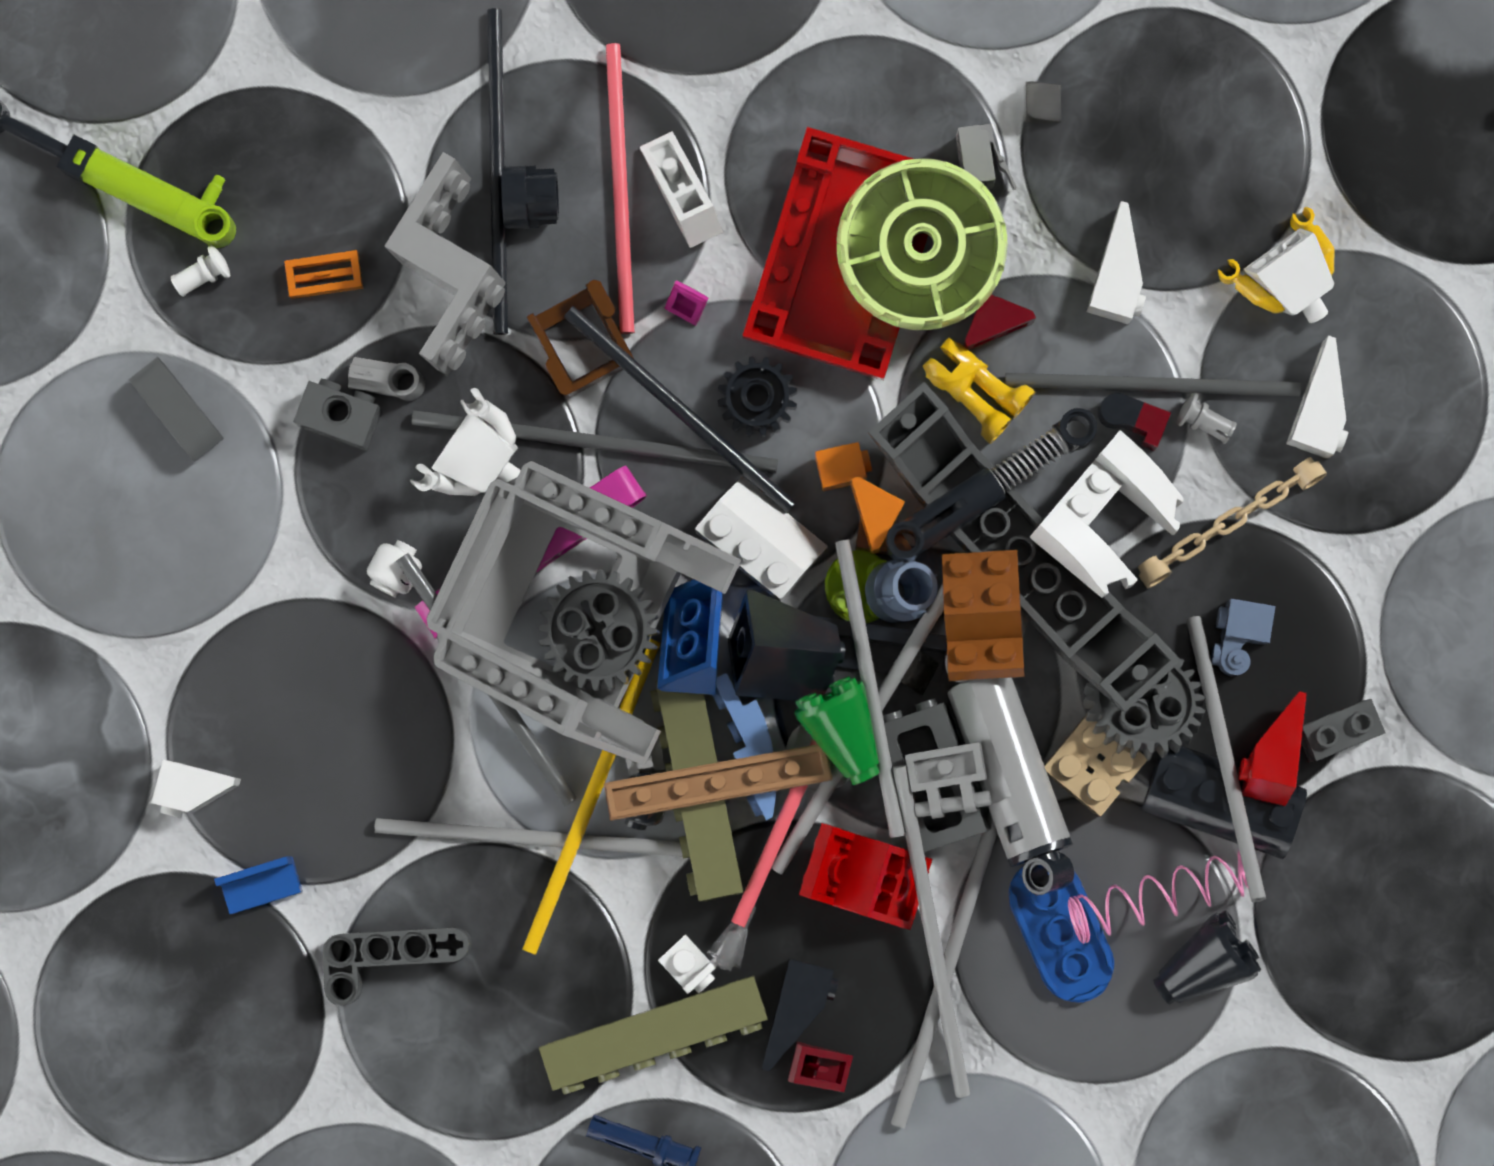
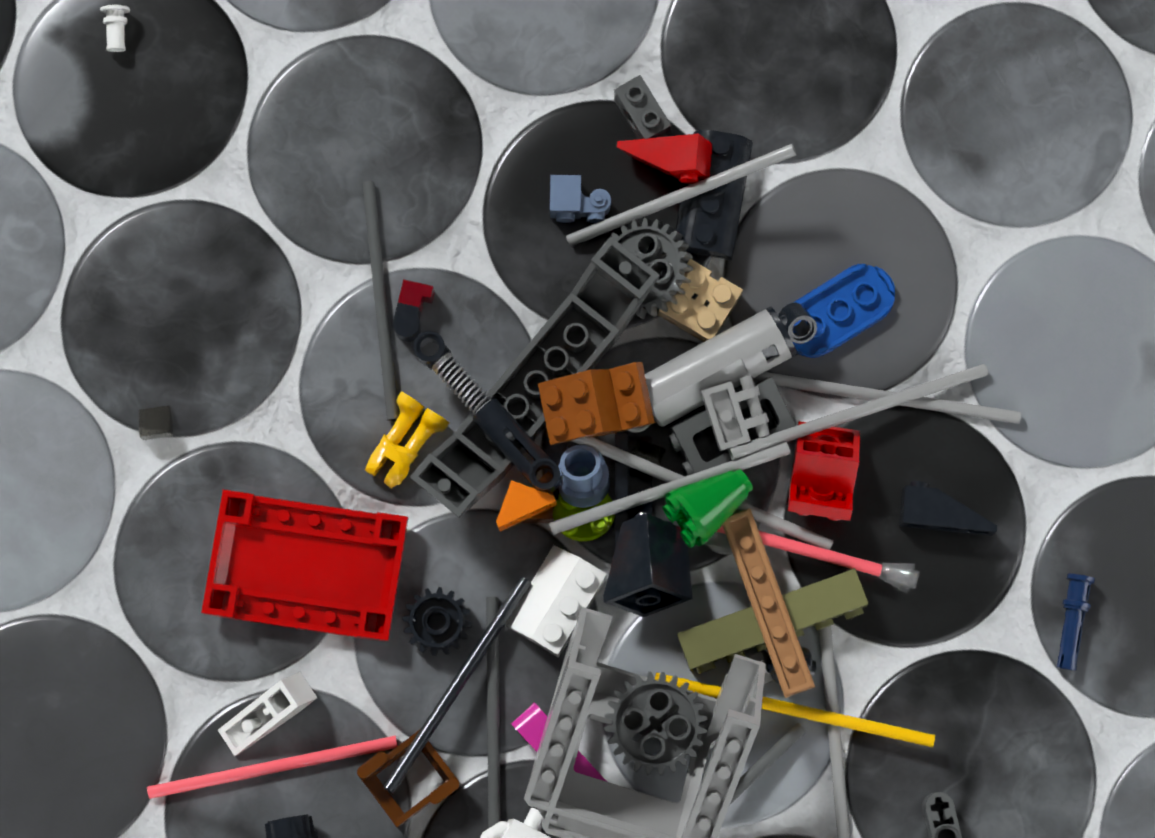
camera: 100 degrees left, 5 degrees down
(652, 1034) = (981, 627): olive brick -> none
(686, 302) = (364, 694): dark pink slope -> none
(688, 965) = (920, 607): white bracket -> none
(691, 639) = (652, 643): blue slope -> none
(751, 728) = (715, 586): medium blue slope -> none
(819, 1067) = (985, 488): dark red slope -> none
(840, 464) = (486, 541): orange brick -> none
(911, 286) = (284, 533): yellowish green wheel -> none
(975, 154) = (209, 466): light grey piece -> none
(995, 320) = (343, 434): dark red slope -> none
(1066, 528) = (515, 347): white wedge -> none
(1075, 906) = (768, 174): bright pink piece -> none
(1119, 277) = (293, 338): white slope -> none
(1155, 570) = (534, 276): tan piece -> none
(1205, 419) = (403, 255): light grey pin -> none
(1208, 962) = (845, 189): black cone -> none
(1291, 273) = (274, 200): white torso -> none
(1322, 409) = (384, 162): white slope -> none

